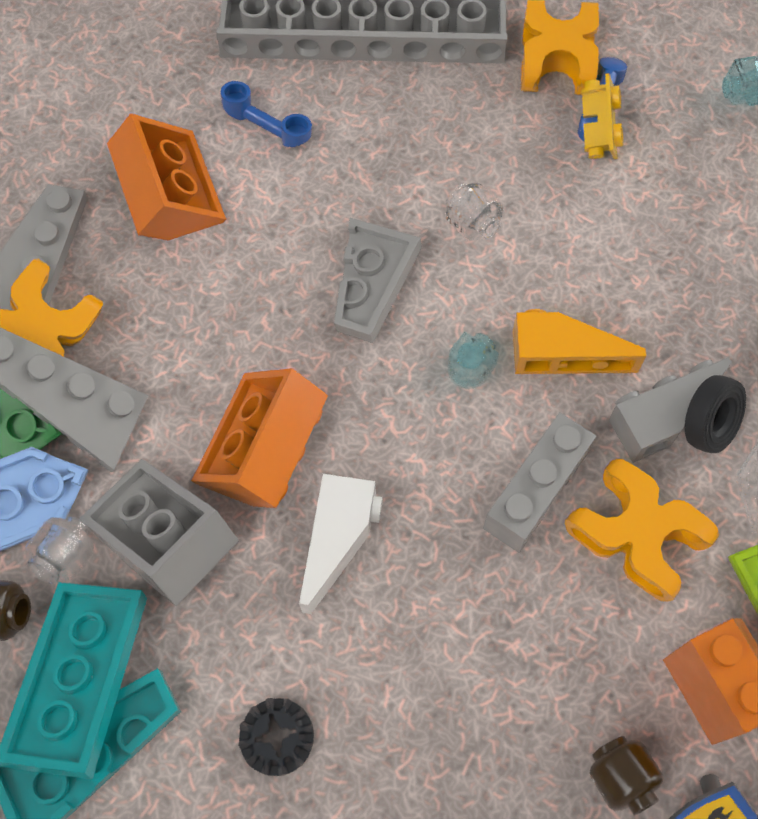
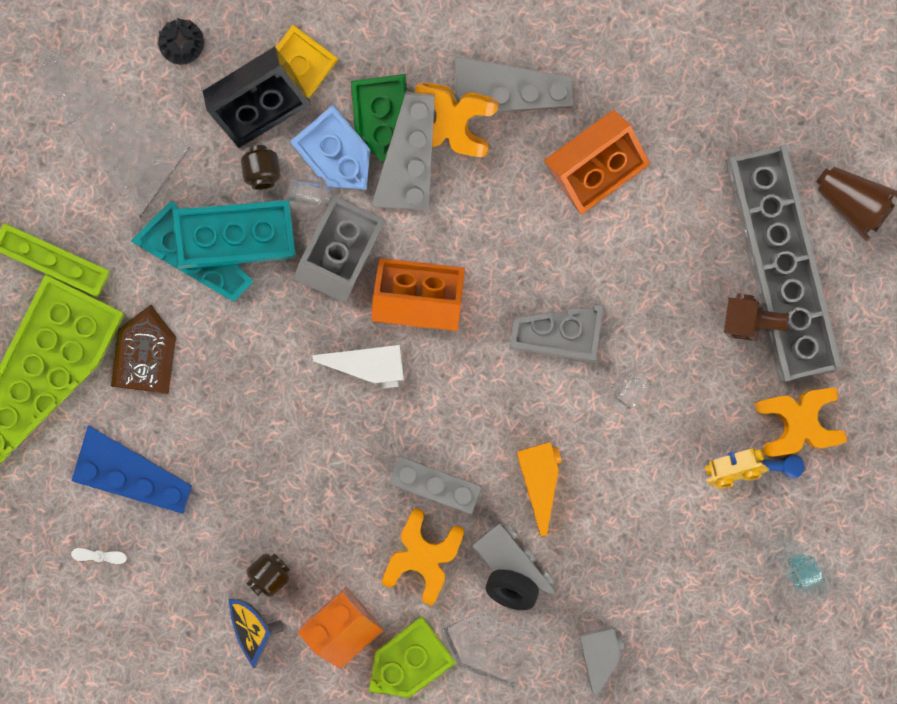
camera: 70 degrees right, 20 degrees up
(236, 101) = (681, 189): blue bar -> none
(294, 748) = (248, 368): black gear -> none
(419, 55) = (747, 317): none -> reddish brown brick
(472, 360) = (513, 419): clear light blue plate -> none

